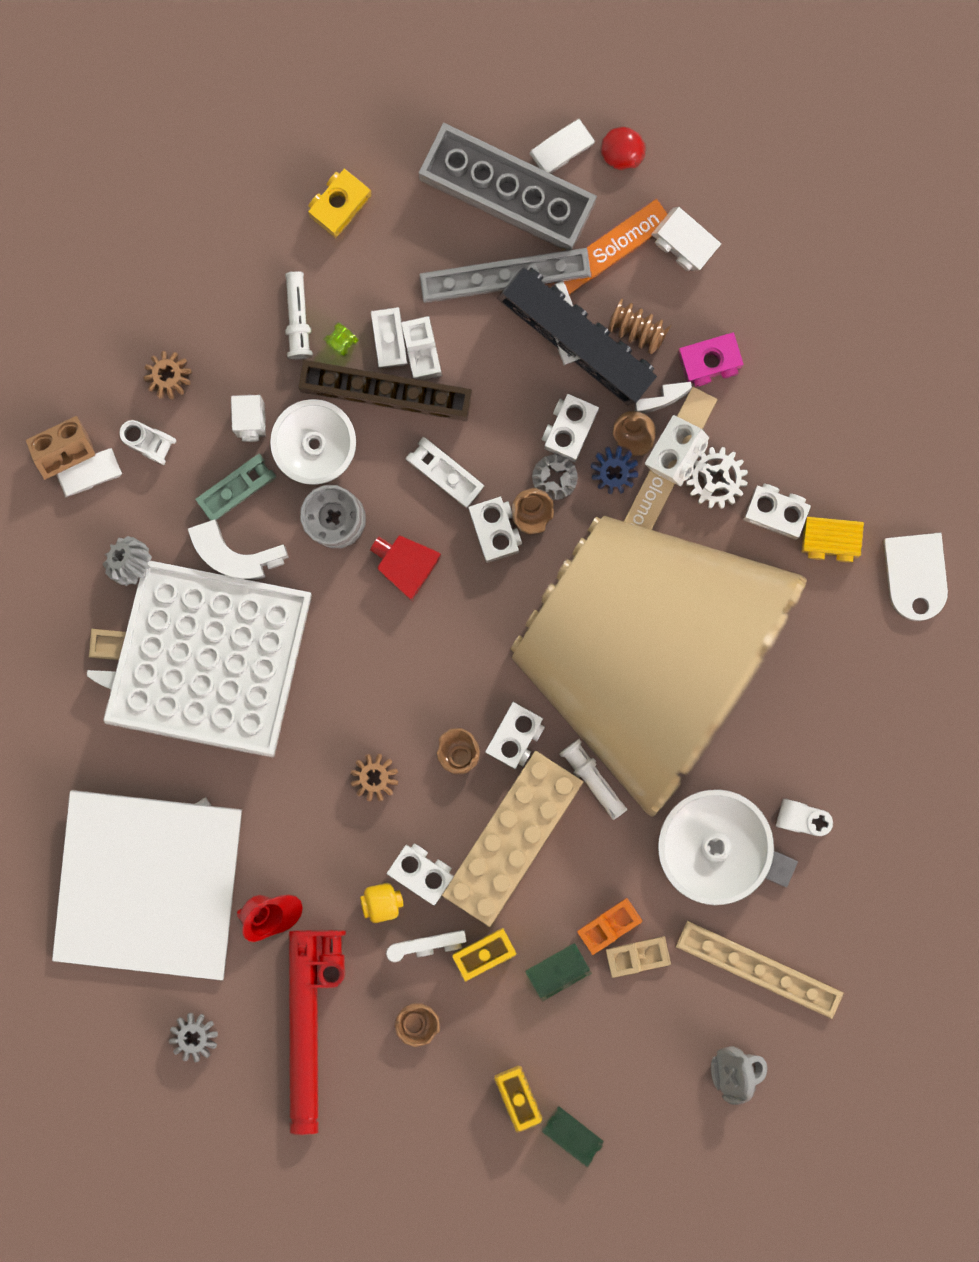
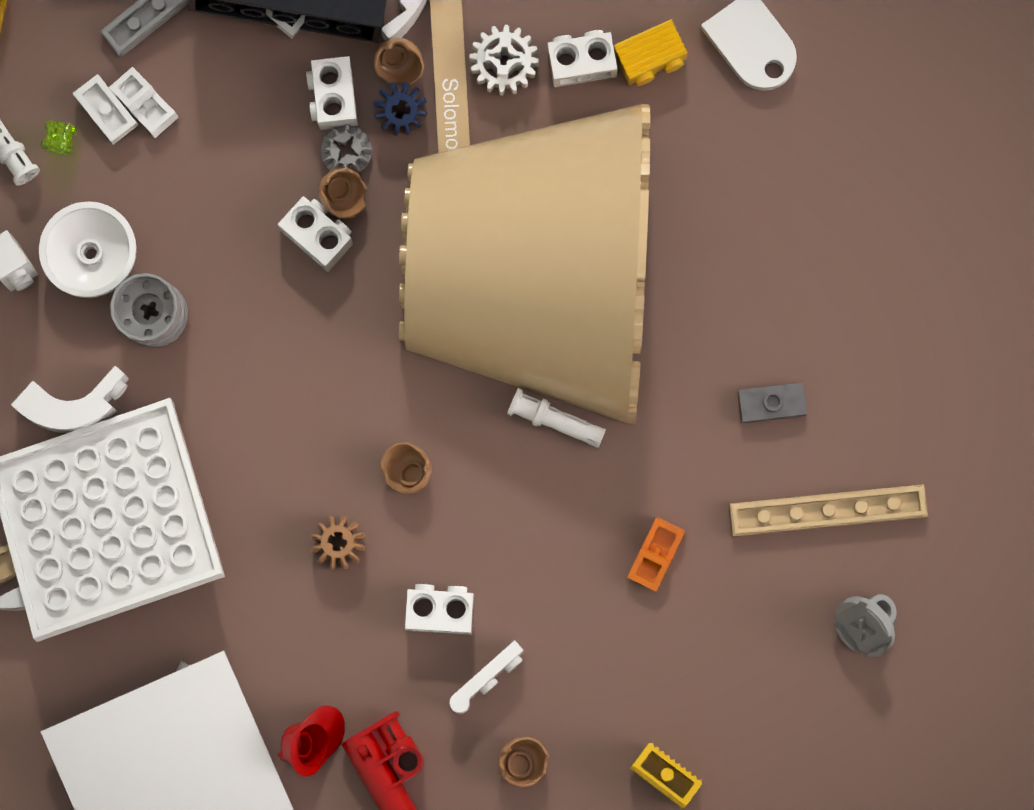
camera: 30 degrees left, 5 degrees down
(235, 488) = (36, 340): sand green plate -> none
(381, 903) = (416, 662): yellow head -> none
(385, 390) = (130, 160): dark brown brick -> none
(405, 563) = (247, 316): red torso -> none
(446, 473) = (236, 207): white plate -> none
(484, 954) = (548, 651): yellow brick -> none
(508, 732) = (445, 421): white brick -> none
(512, 838) = (509, 522): tan brick -> none
(558, 972) = (632, 628): clear green hinge -> none
(572, 1136) = (742, 782): clear green hinge -> none
(638, 956) = (702, 567): tan slope -> none
(671, 448) = (442, 54): white brick -> none
(716, 847) = (714, 413): white dish -> none
(799, 816) = (777, 338): white piece -> none

